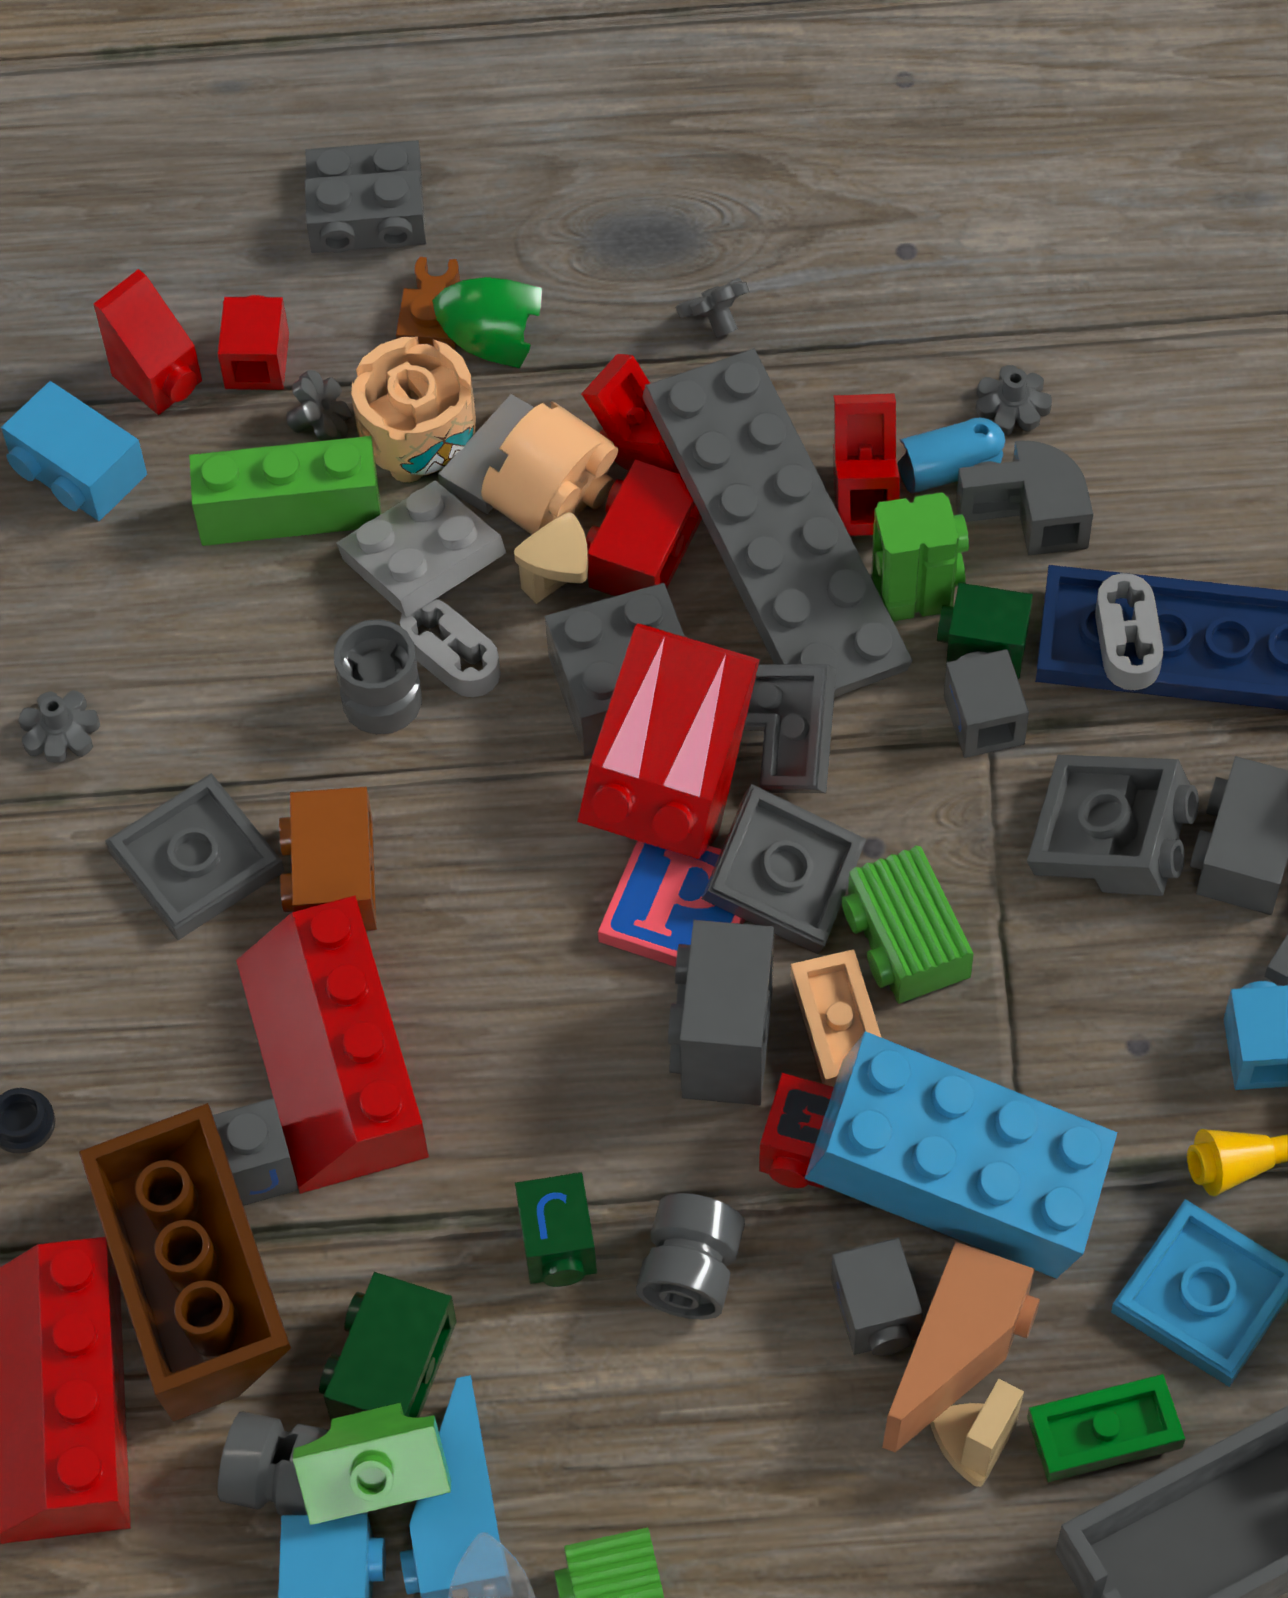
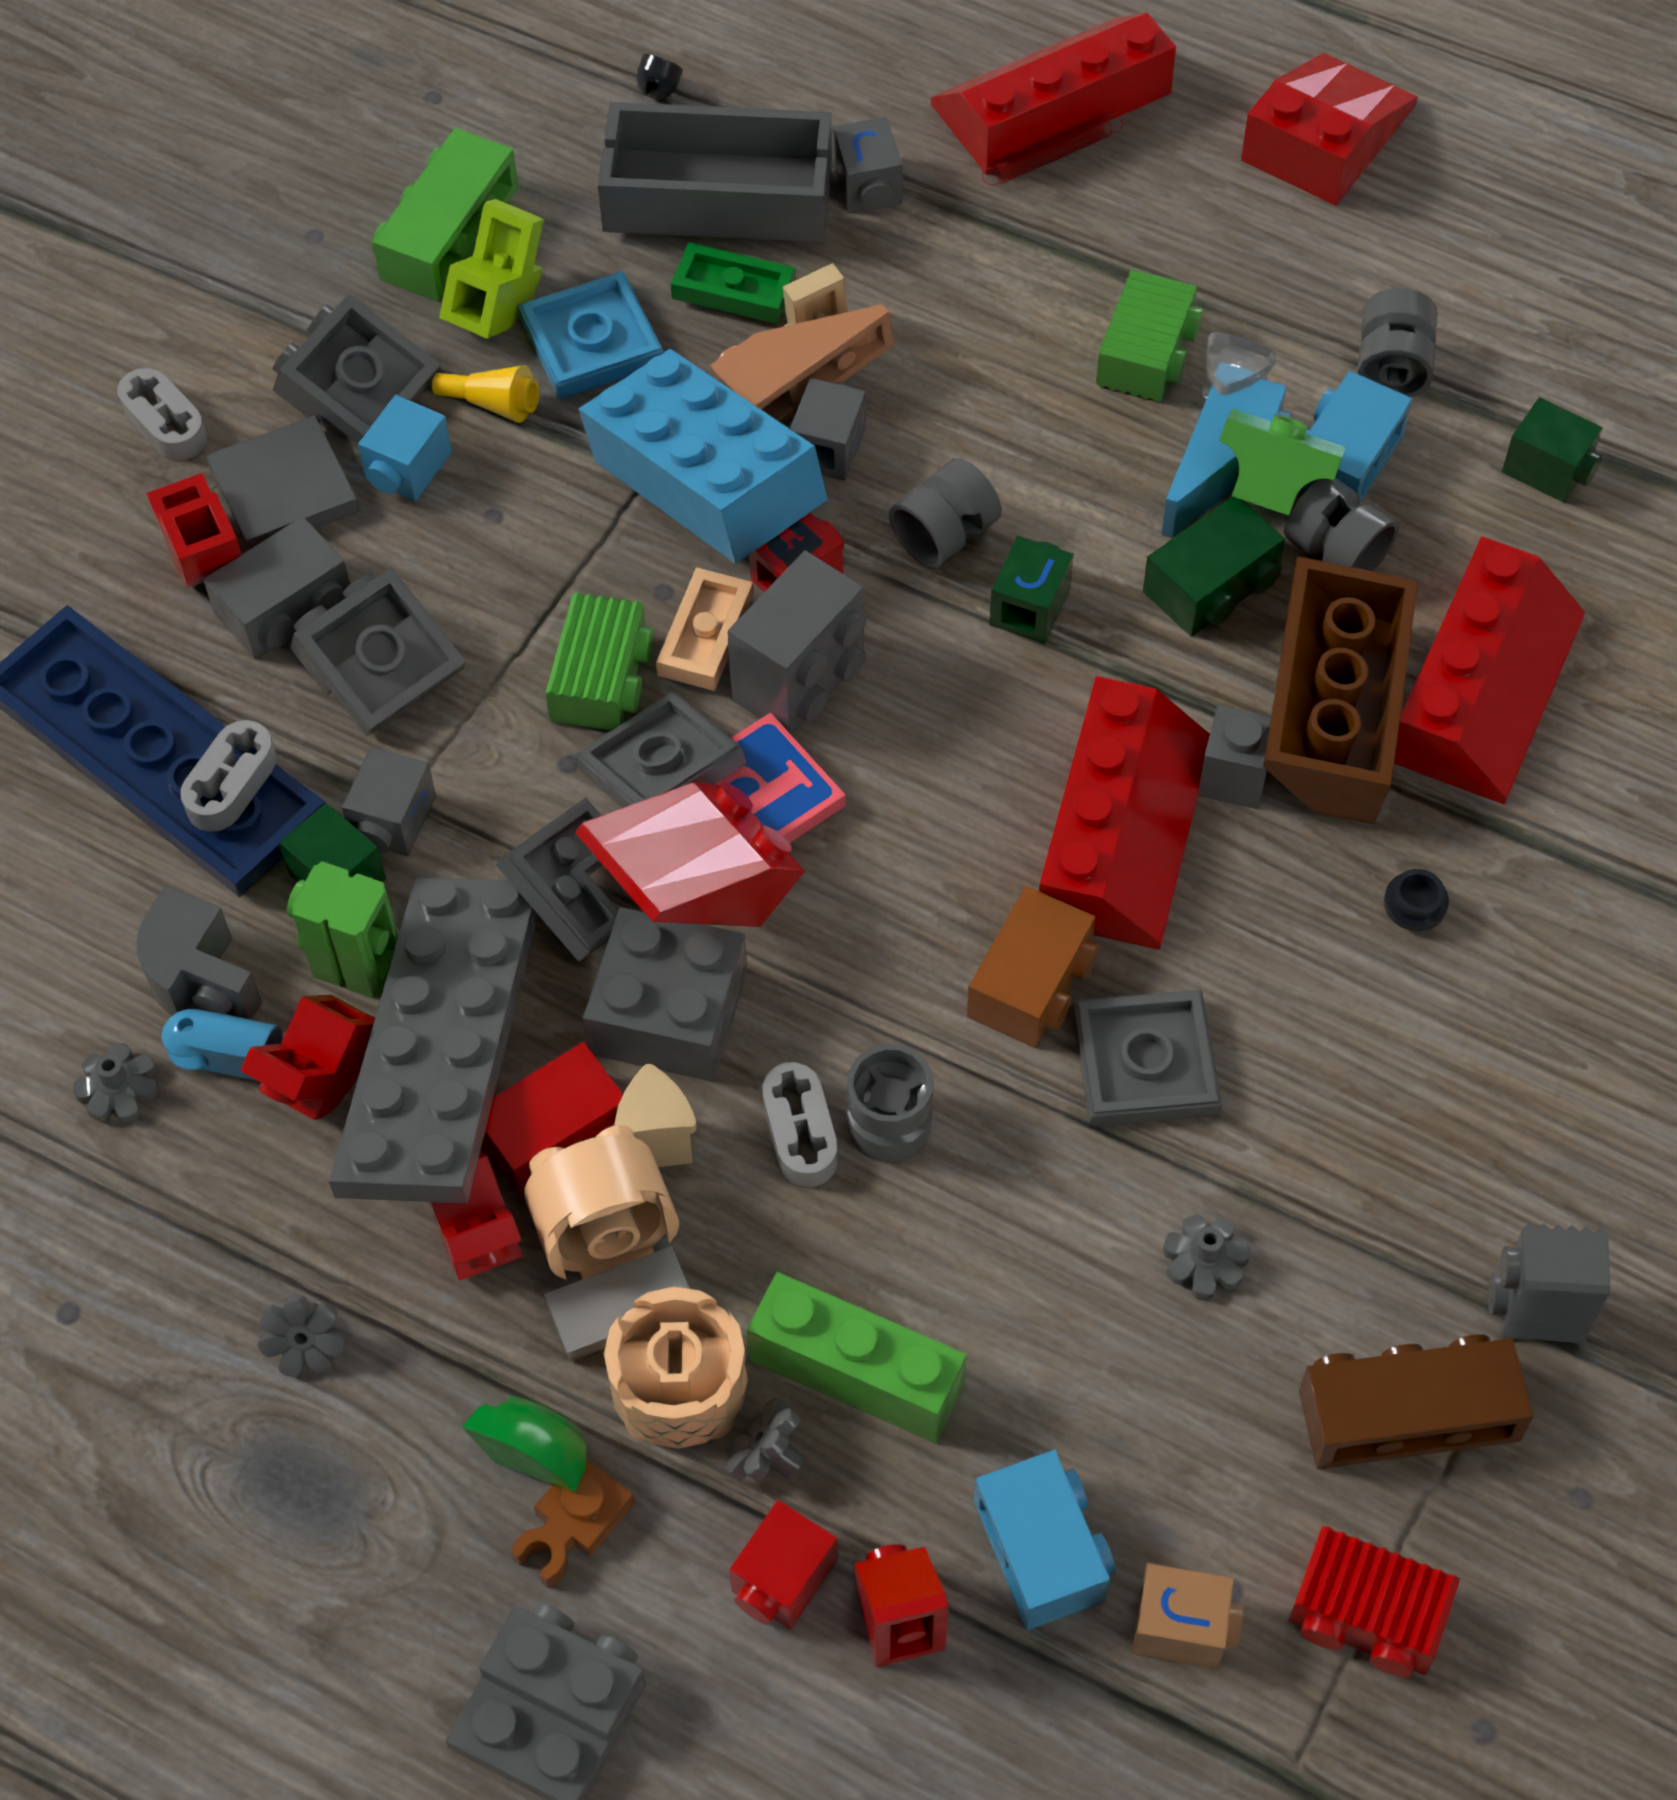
camera: 150 degrees left, 0 degrees up
(421, 548) = (764, 1221): light grey plate -> none

